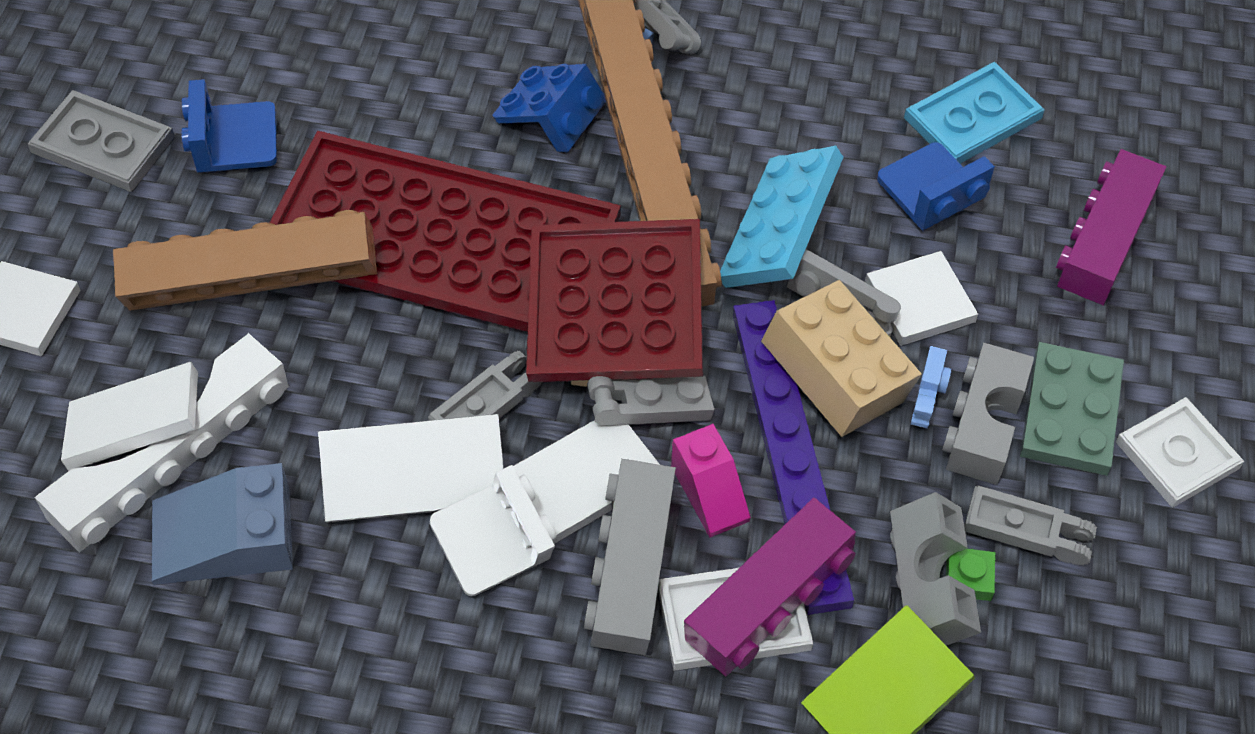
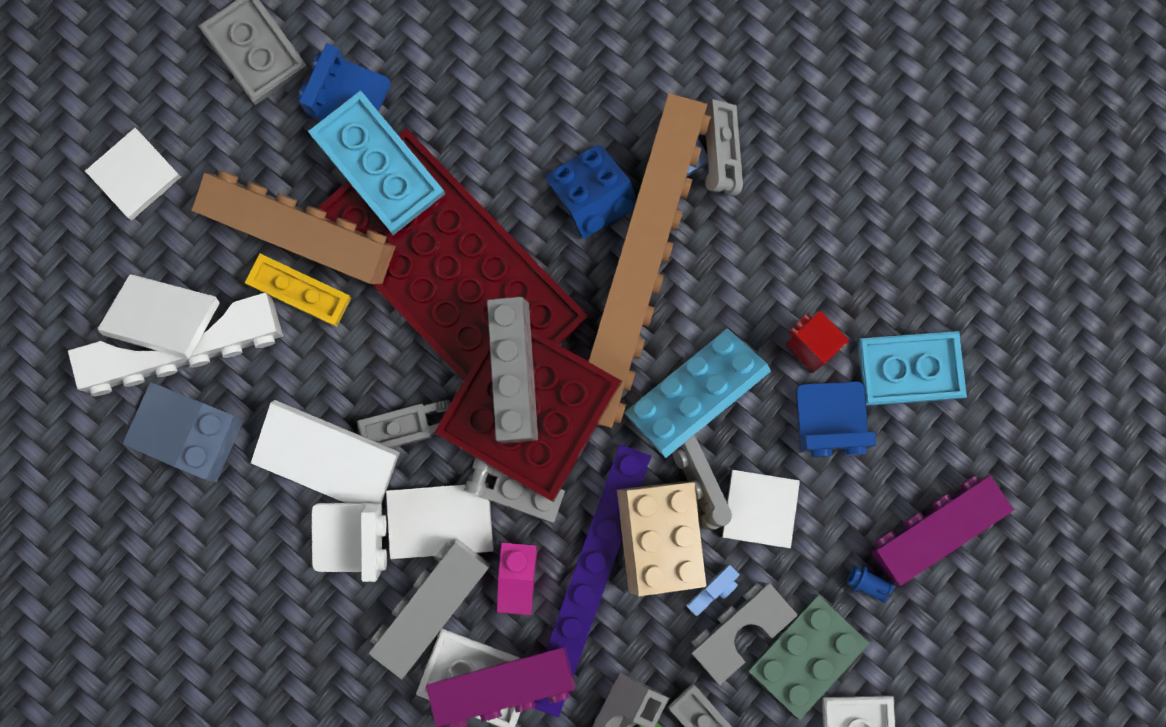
camera: 30 degrees right, 25 degrees up
(285, 326) = (298, 290): none -> yellow plate
(304, 164) = (376, 162): none -> medium azure plate
(581, 257) = (512, 370): none -> light grey brick
(867, 116) = (815, 340): none -> red brick
(1081, 307) = (869, 583): none -> blue pin

